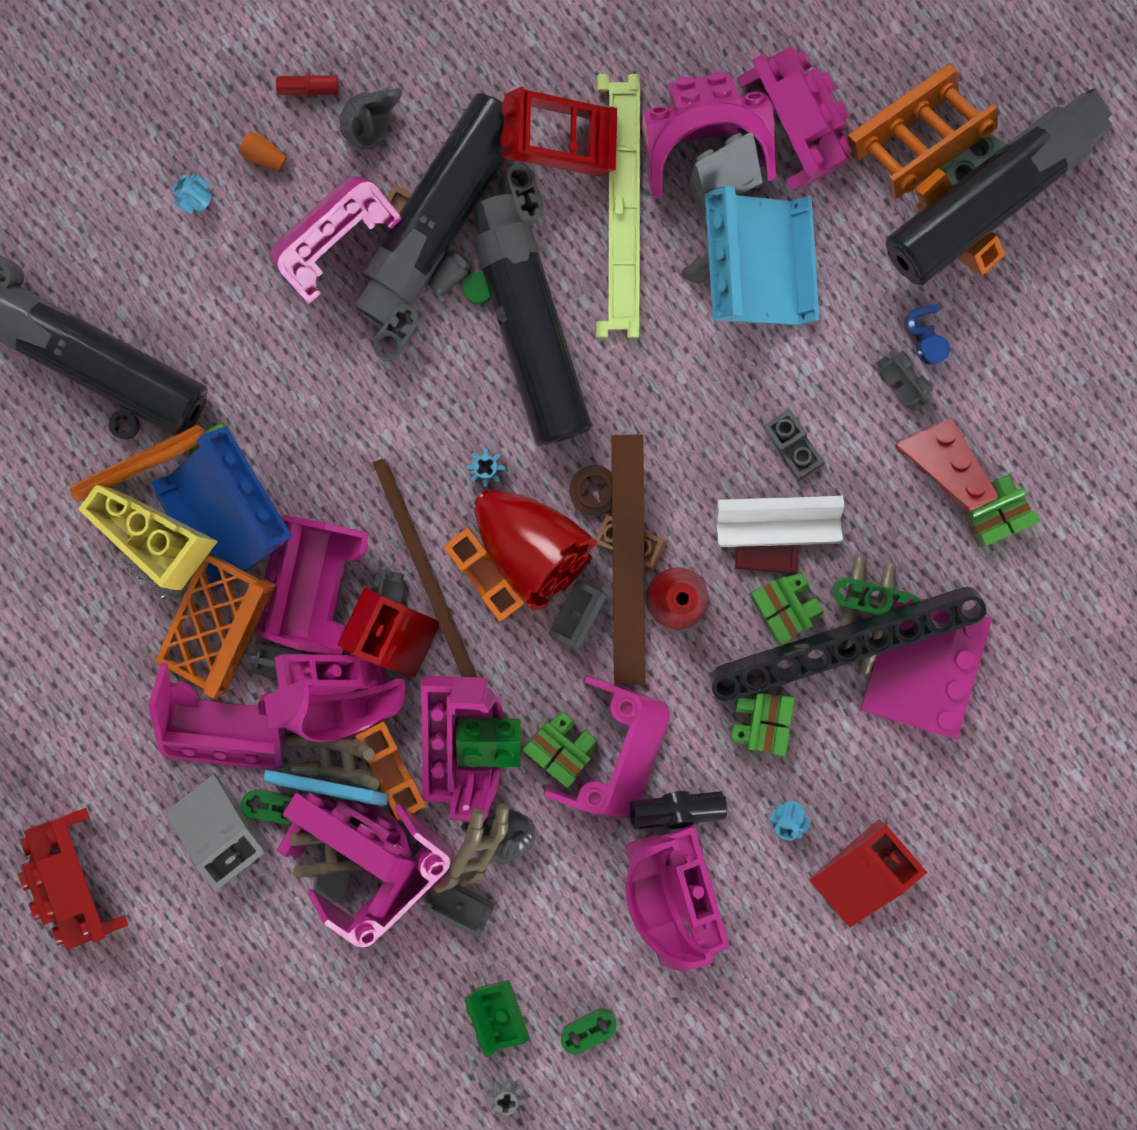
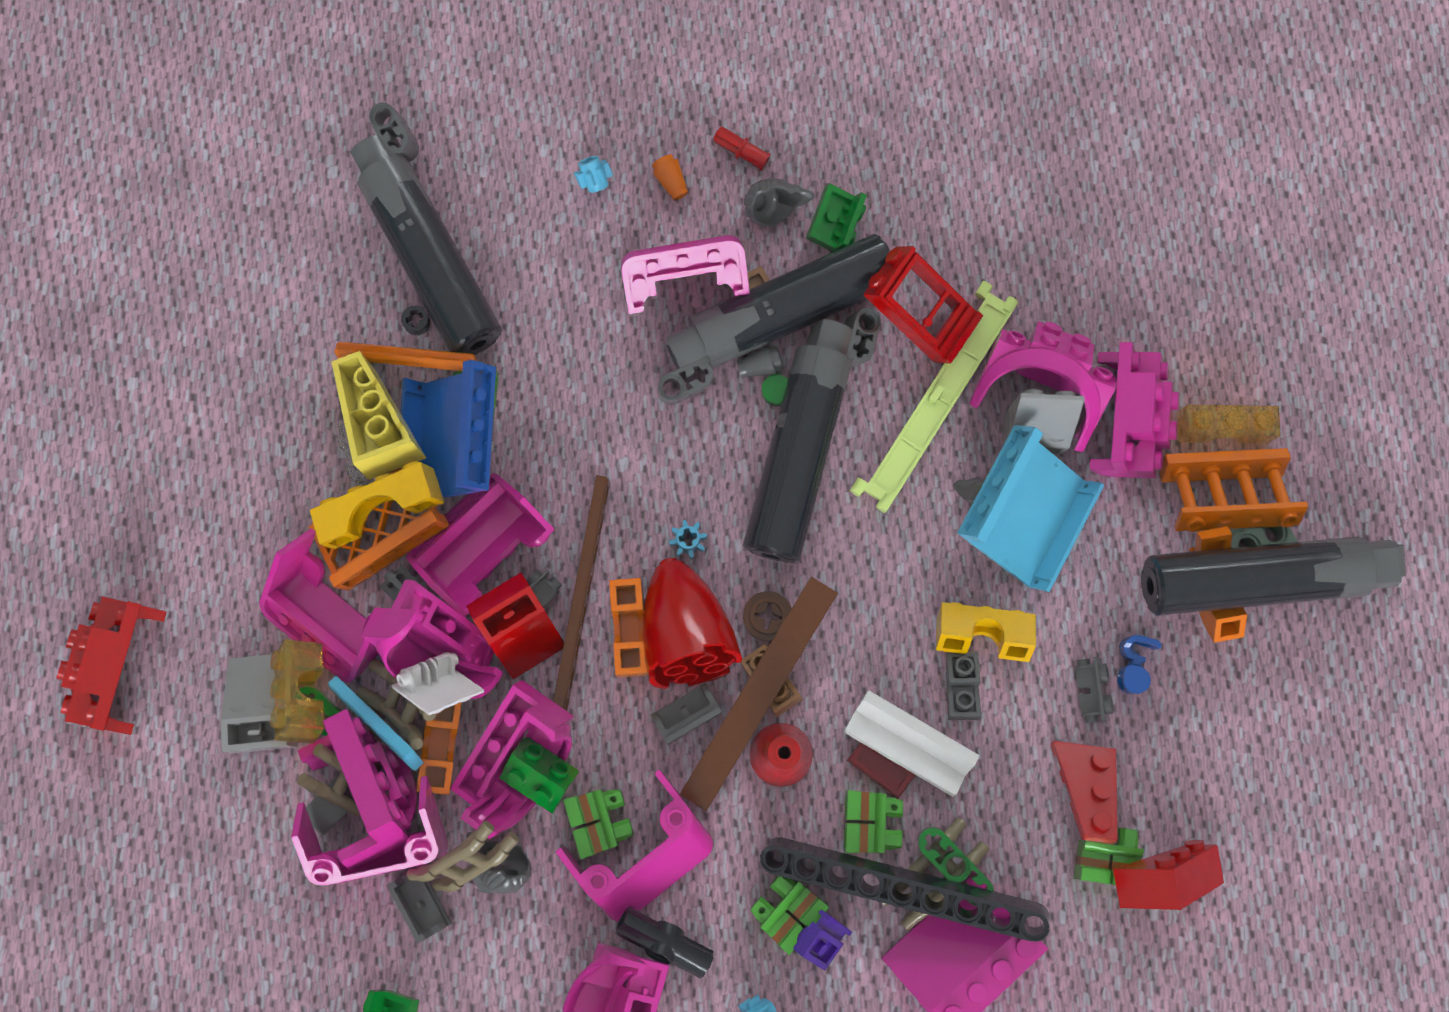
camera: 30 degrees right, 10 degrees down
(182, 637) = (343, 518): none -> yellow arch
(254, 824) = (295, 715): none -> clear yellow arch
(357, 726) = (435, 684): none -> white hinge
(433, 98) = (836, 218): none -> green bracket
(805, 728) = (821, 940): none -> dark purple plate
(806, 373) = (1010, 630): none -> yellow arch
(883, 72) = (1211, 422): none -> clear yellow arch
(1058, 498) = (1170, 878): none -> red wedge

